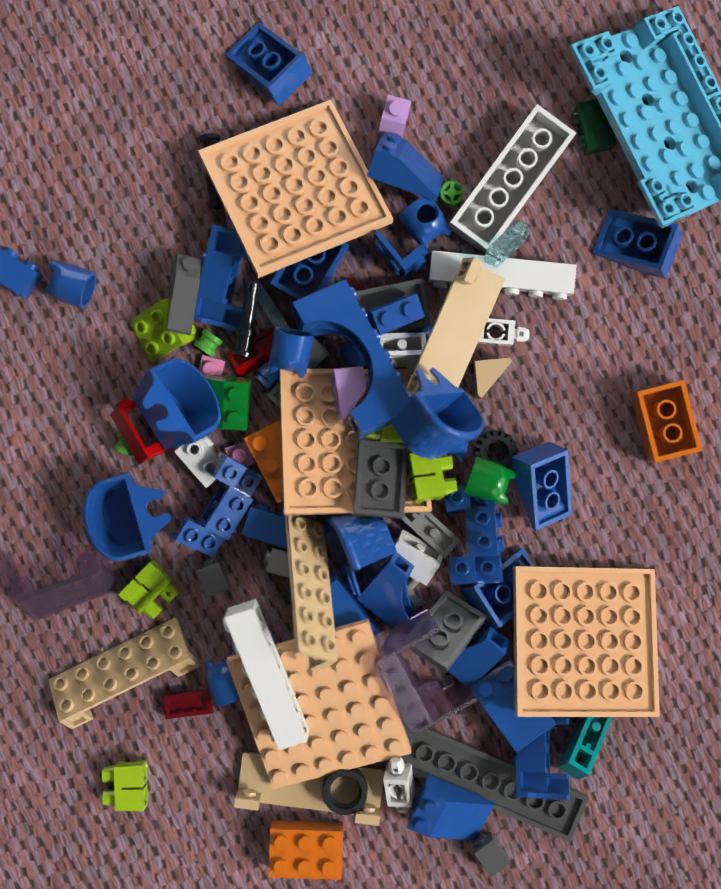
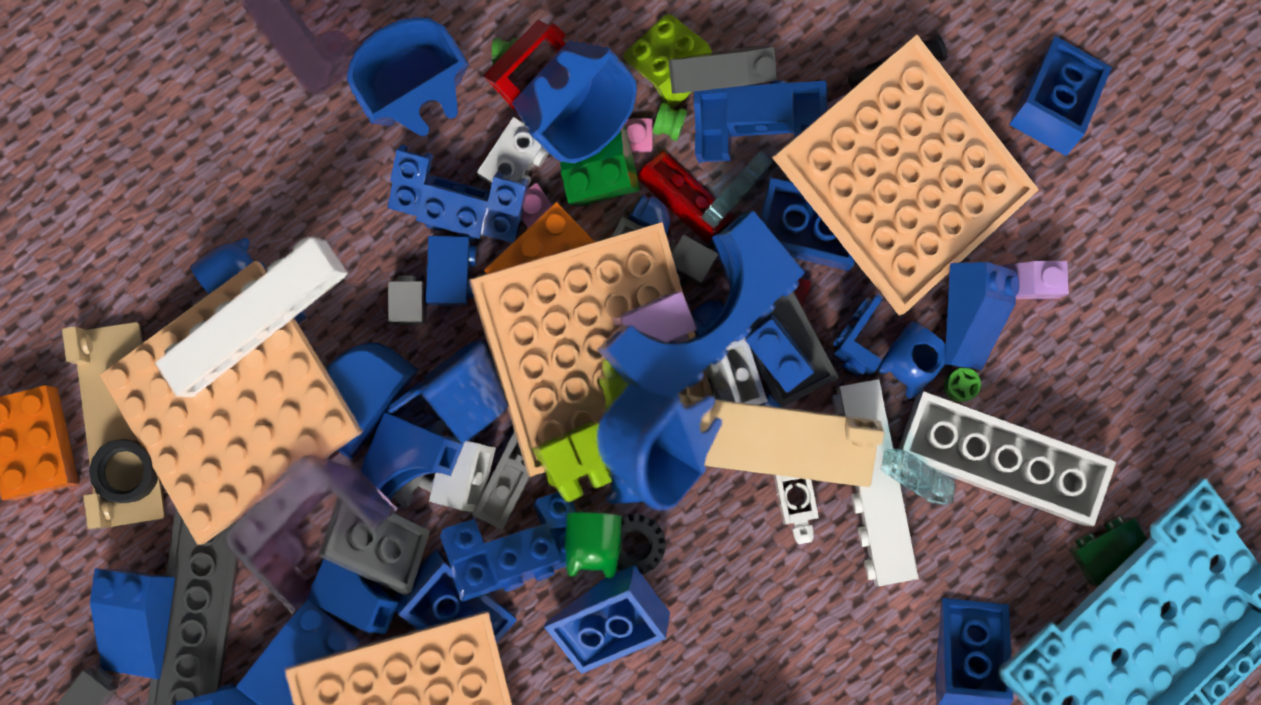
camera: 75 degrees right, 5 degrees down
(119, 671) = (203, 129): tan bracket -> none
(130, 786) = (54, 185): lime hips -> none
(147, 587) = (323, 133): lime hips -> none
(187, 703) = (183, 230): dark red plate -> none
(213, 577) = (361, 216): dark grey brick -> none
(246, 331) = (698, 165): black pin -> none
(290, 350) = (689, 228): blue piece -> none
(310, 591) = (377, 343): tan bracket -> none
(380, 479) = (552, 395): dark grey plate -> none
(399, 784) = (150, 542): white piece -> none
(487, 372) = (738, 502): tan slope -> none

